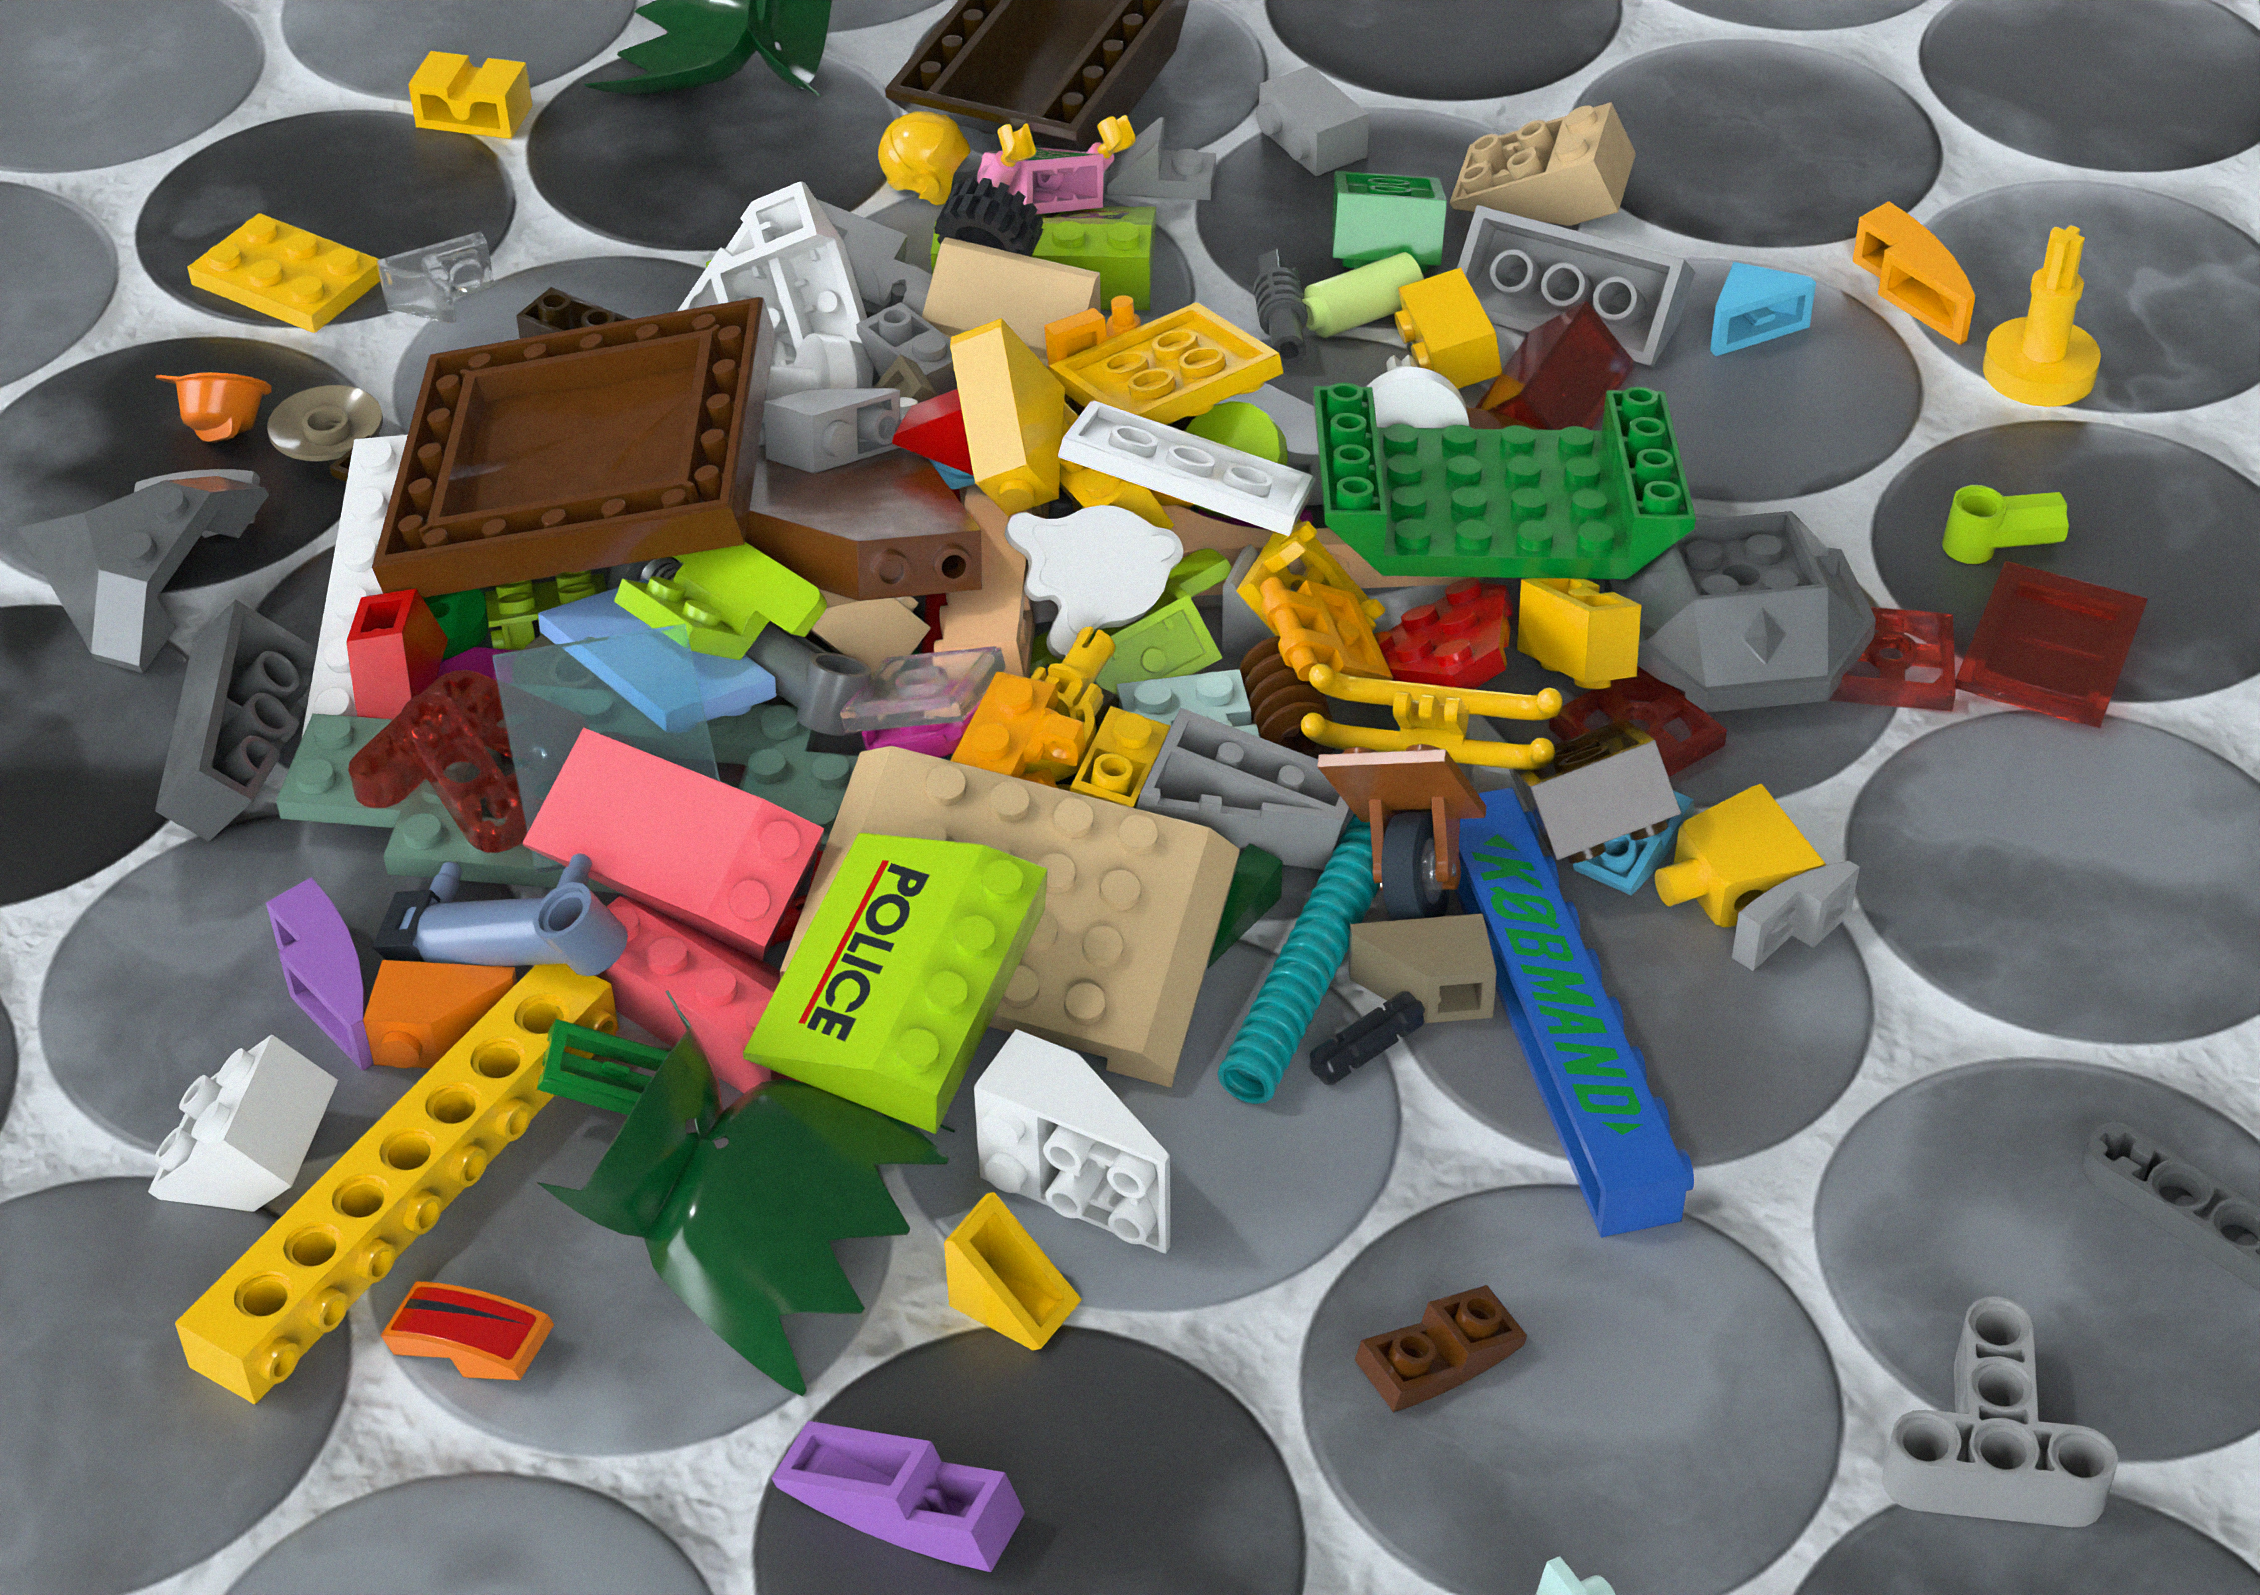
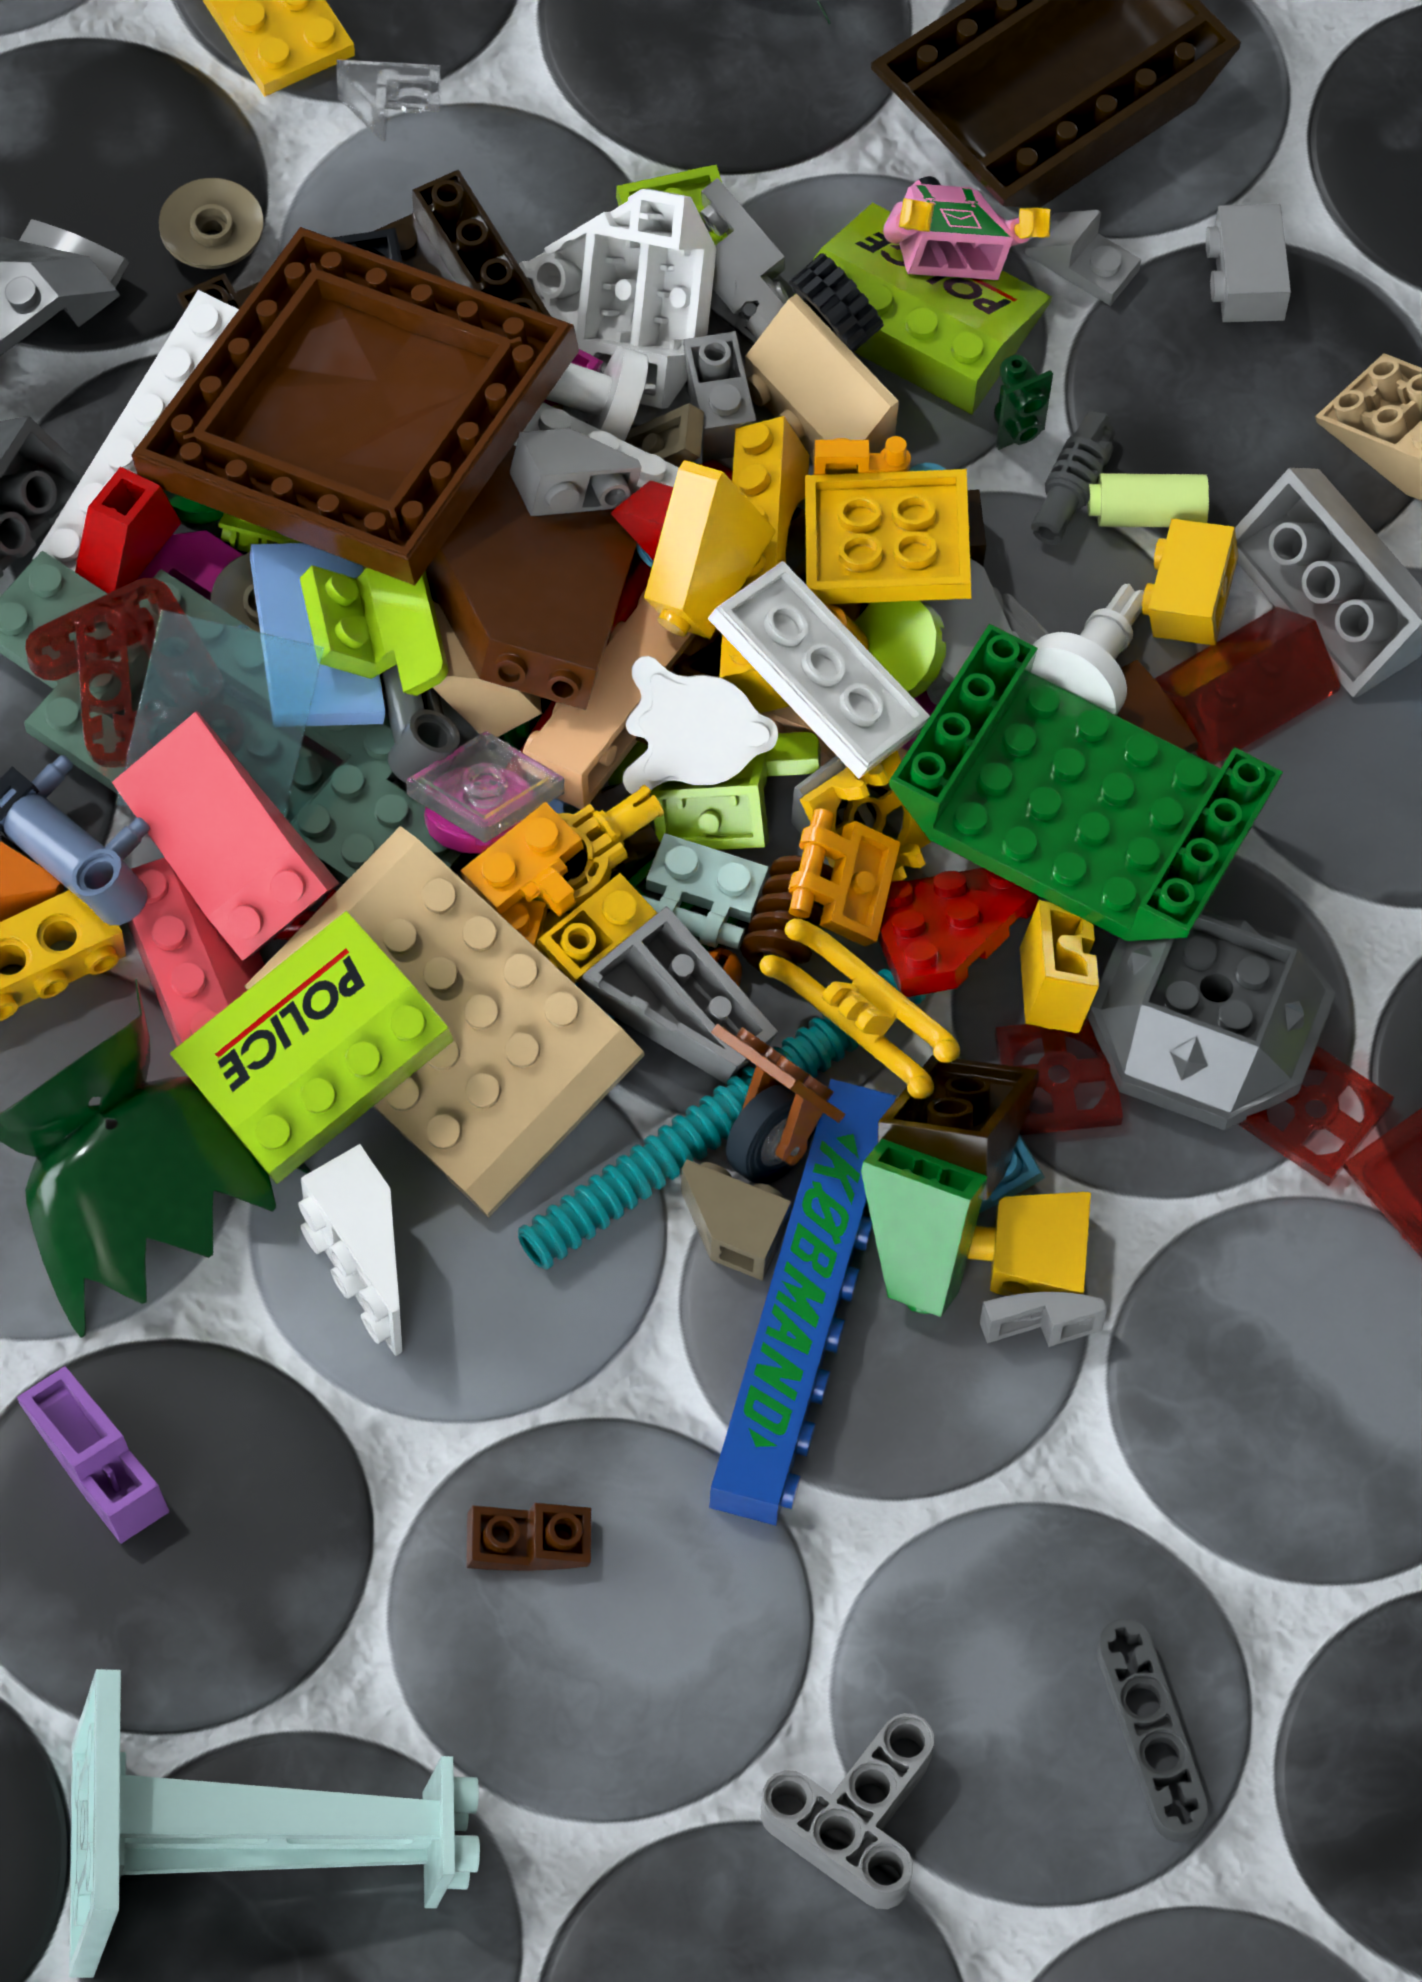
camera: 25 degrees right, 20 degrees up
(218, 403) = (134, 153): orange piece -> none
(605, 1045) = (47, 979): green tile -> none
(923, 154) = (876, 143): yellow cap -> none
(1005, 1277) = (262, 1326): yellow slope -> none
(1203, 244) = (1021, 402): none -> dark green hinge
(1252, 893) = (649, 1079): dark green piece -> none
(1366, 1038) = (651, 1254): black axle -> none
(1387, 216) = (1237, 413): slope -> none
(1637, 866) = (921, 1223): none -> slope

